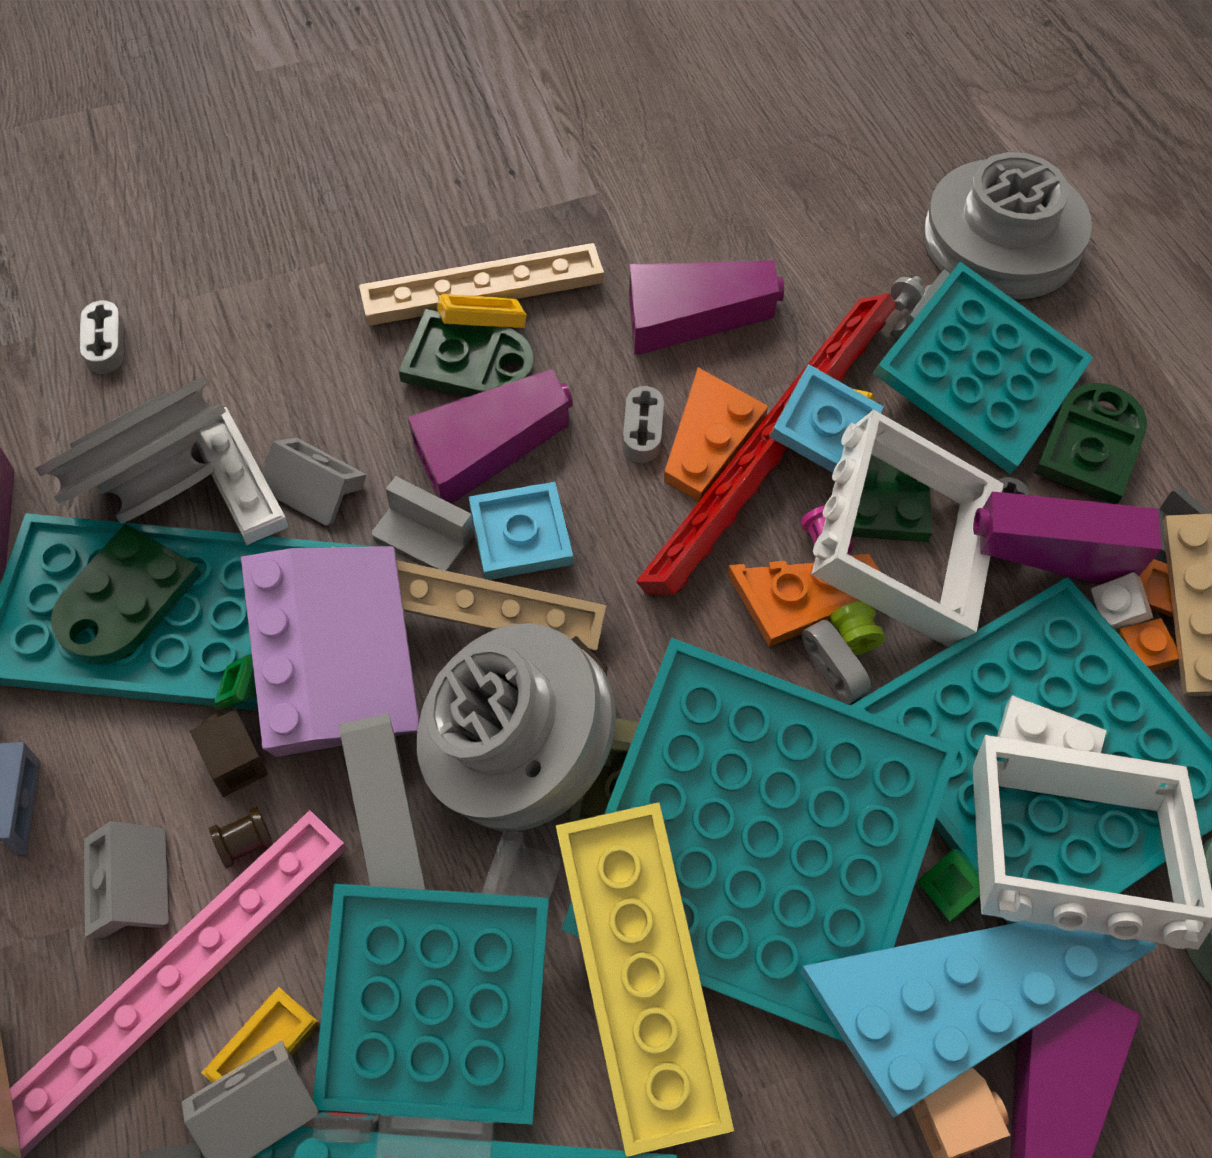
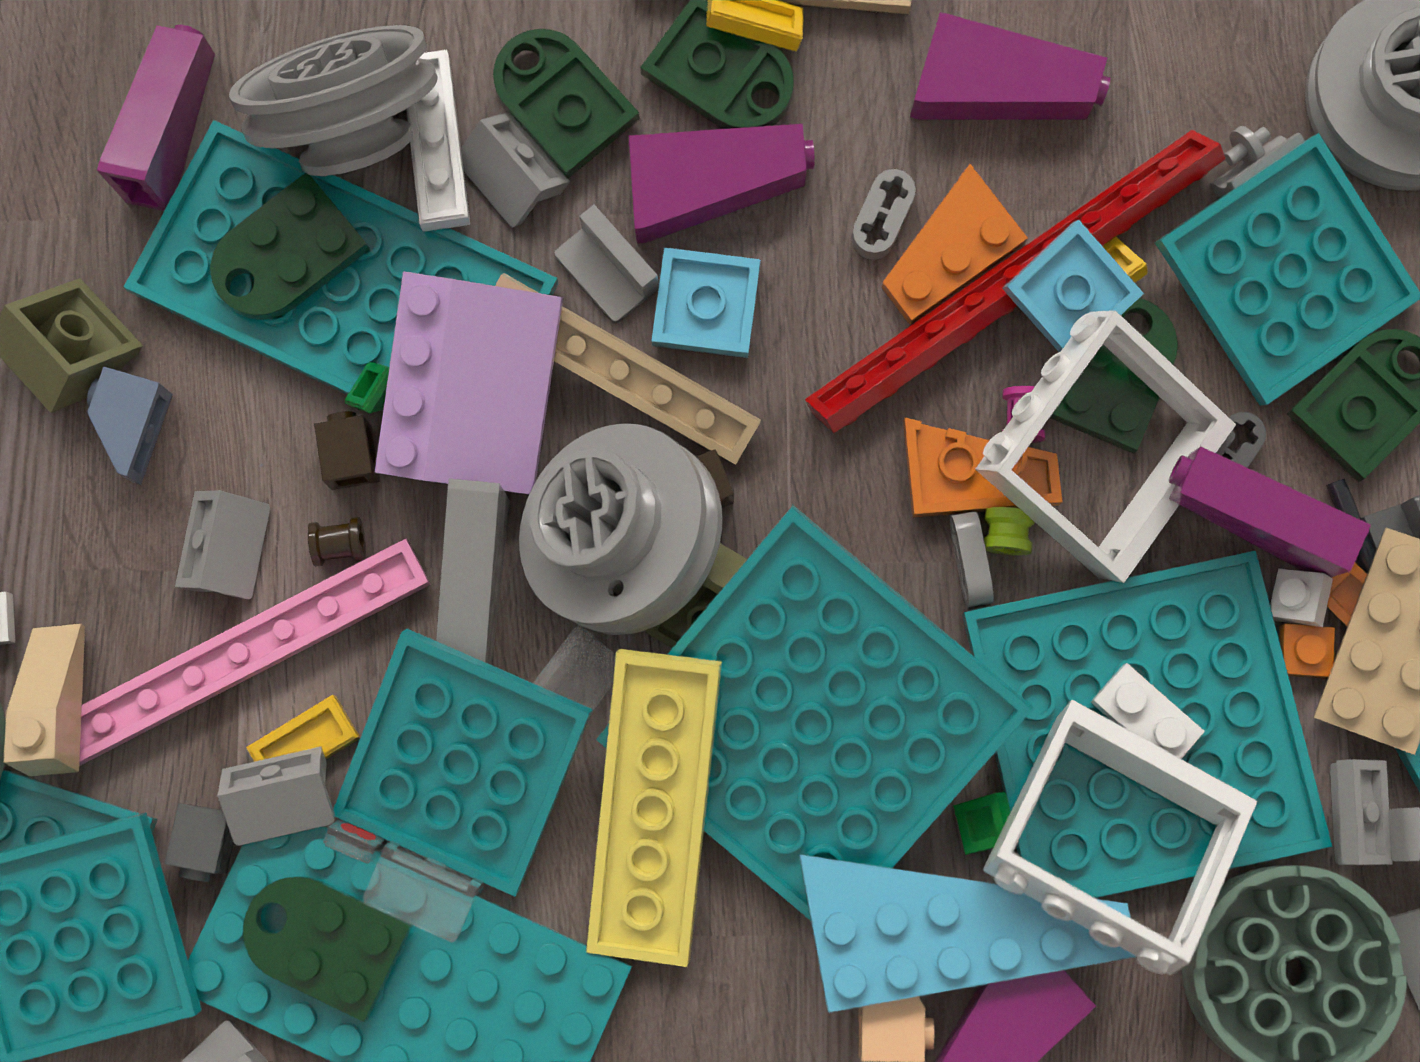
camera: 25 degrees right, 20 degrees up
(338, 414) = (563, 99): none -> dark green plate

